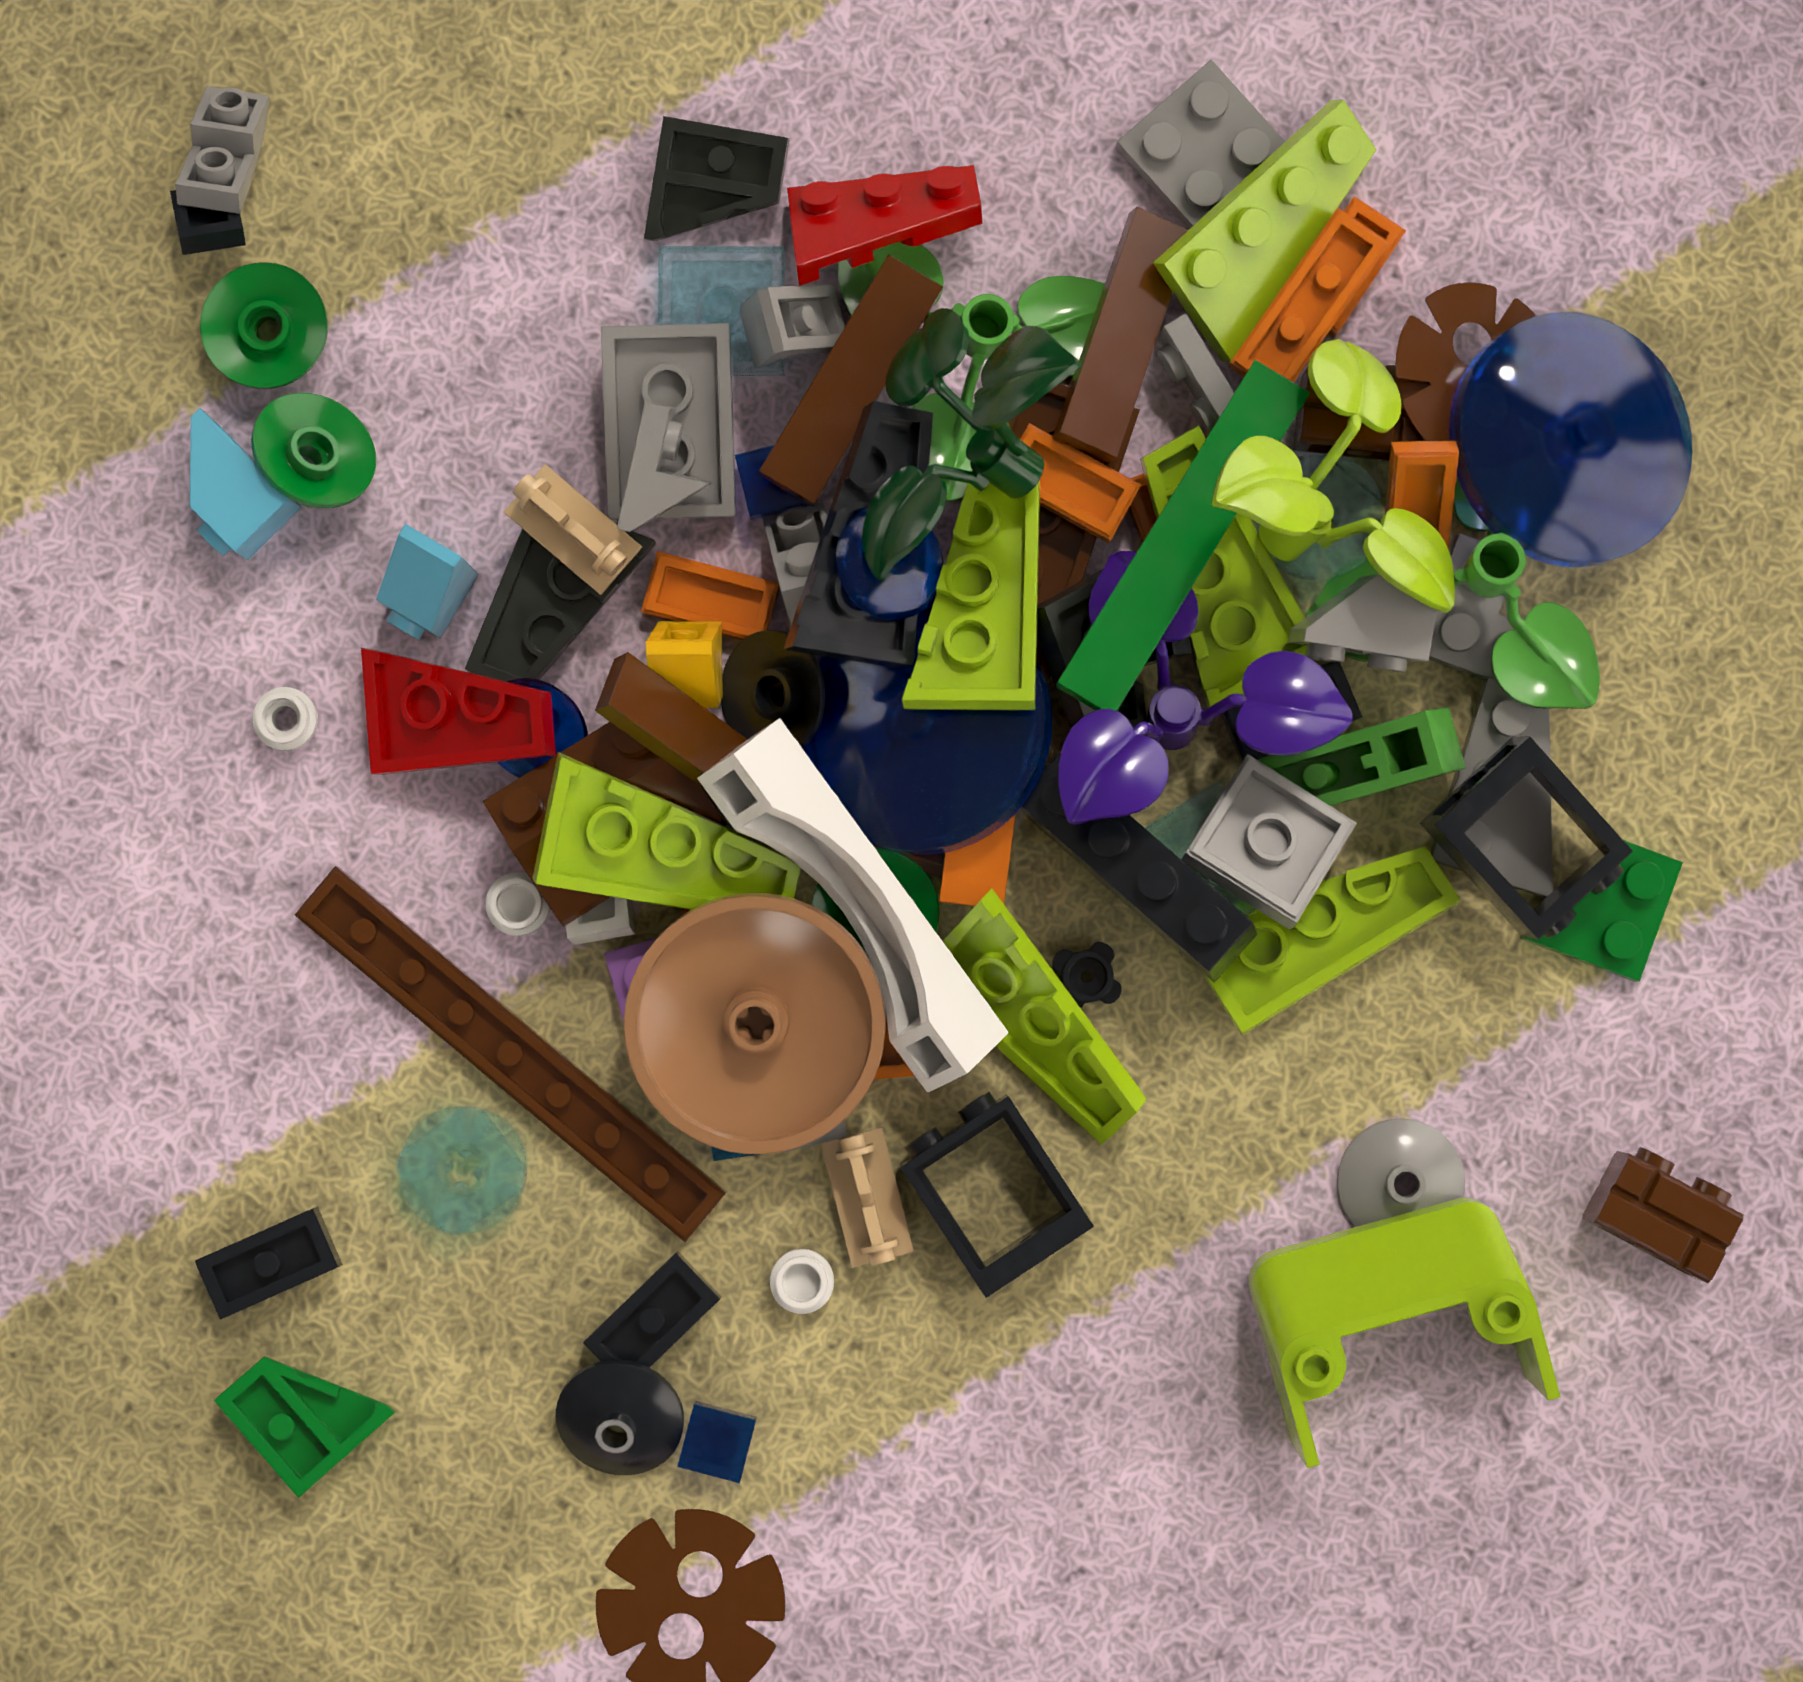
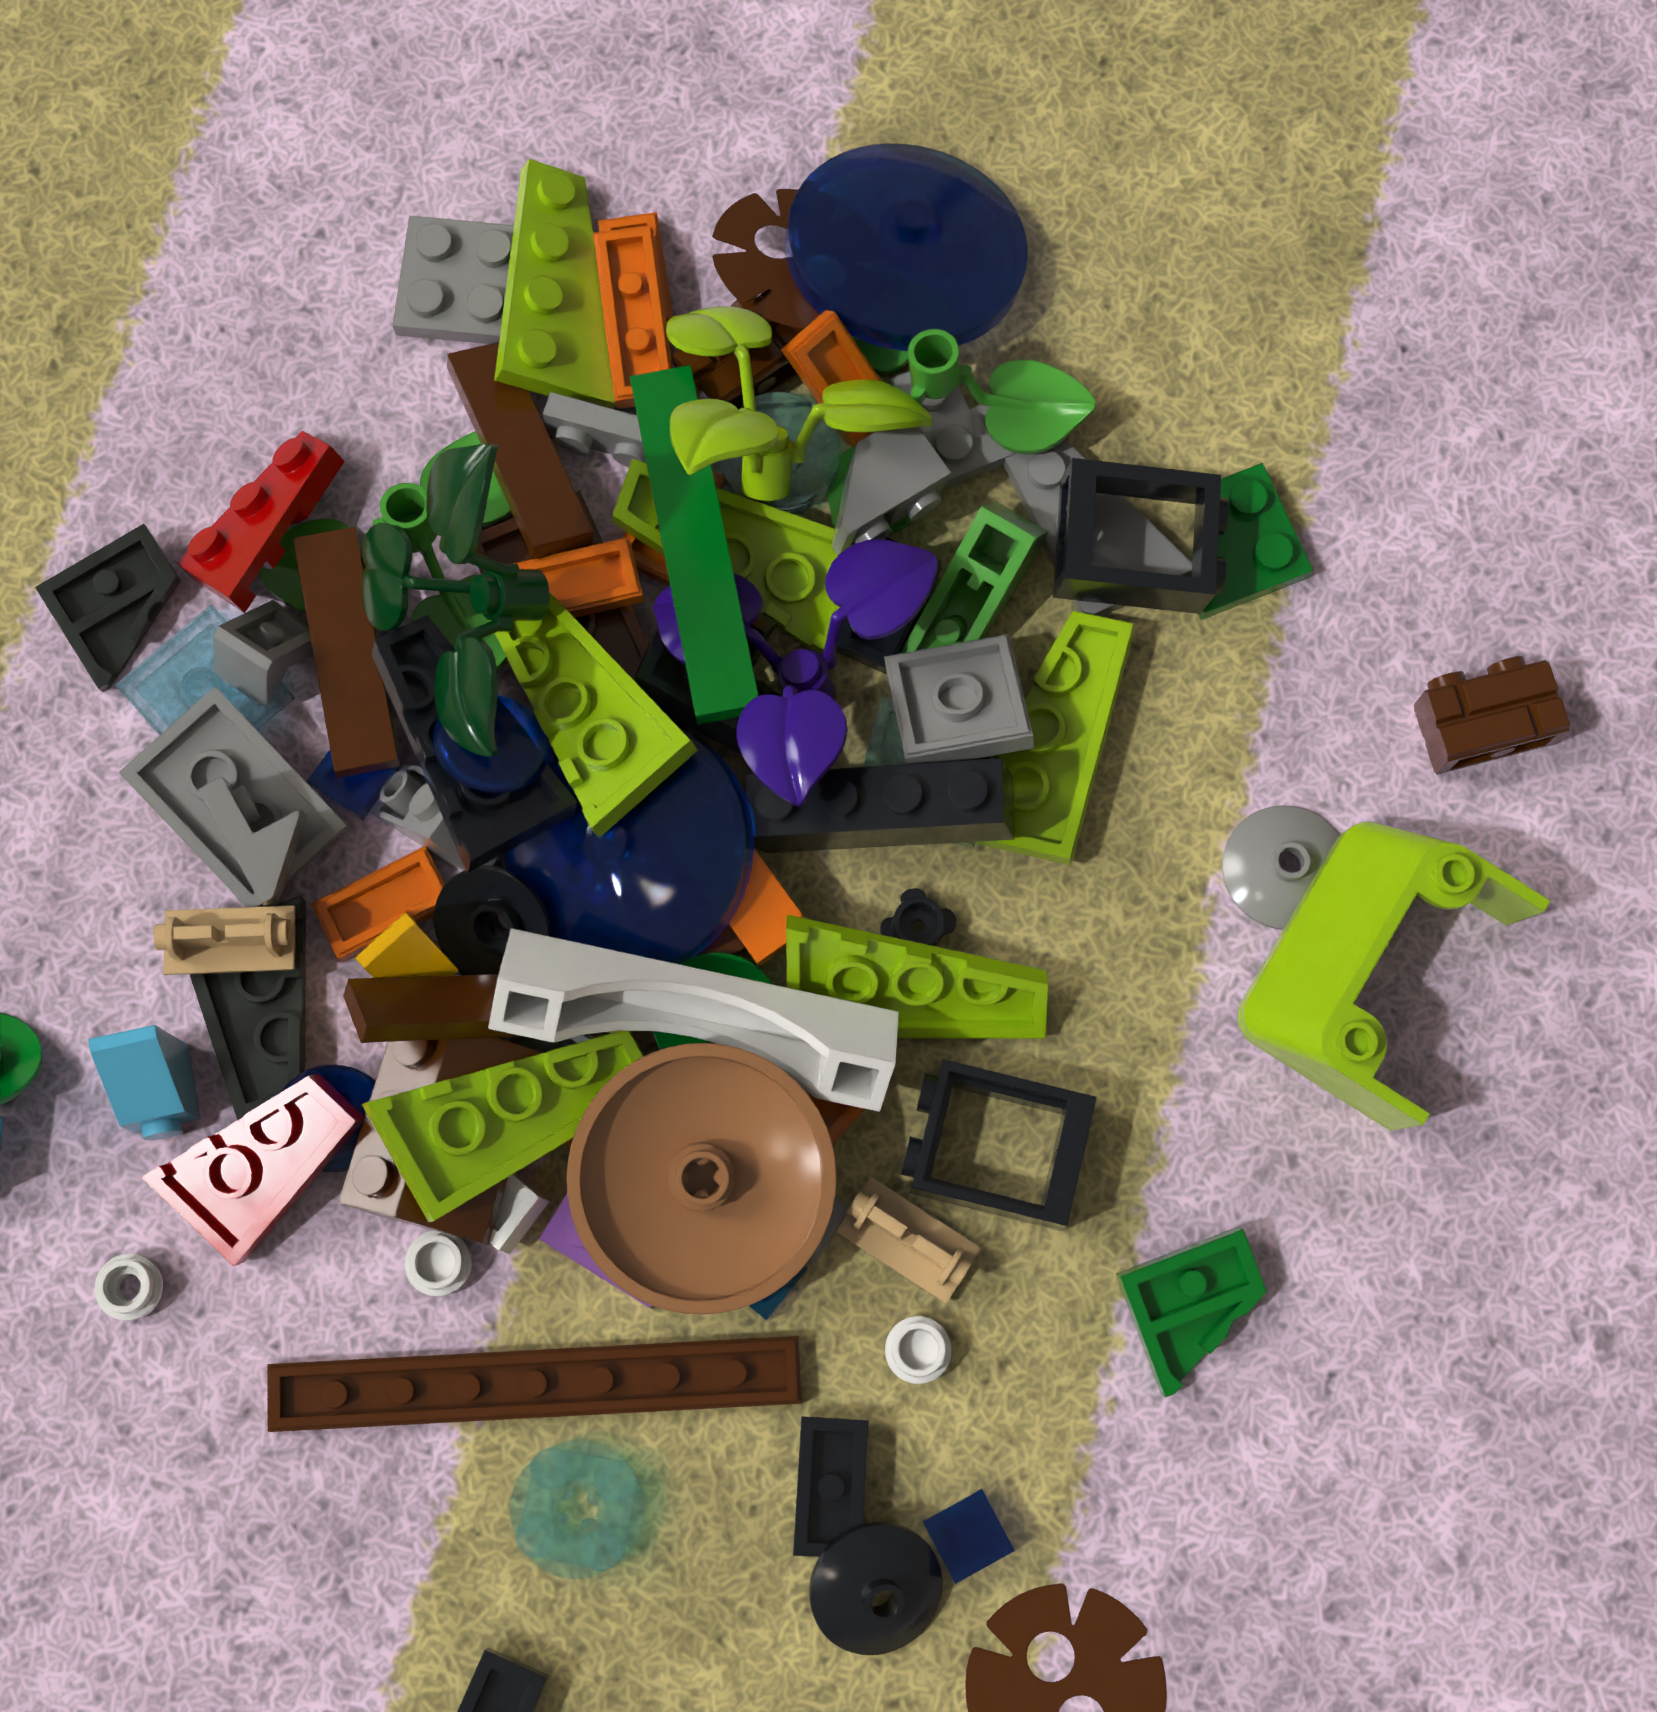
camera: 40 degrees left, 10 degrees down
(1027, 1428) = (1190, 1301): none -> green wing

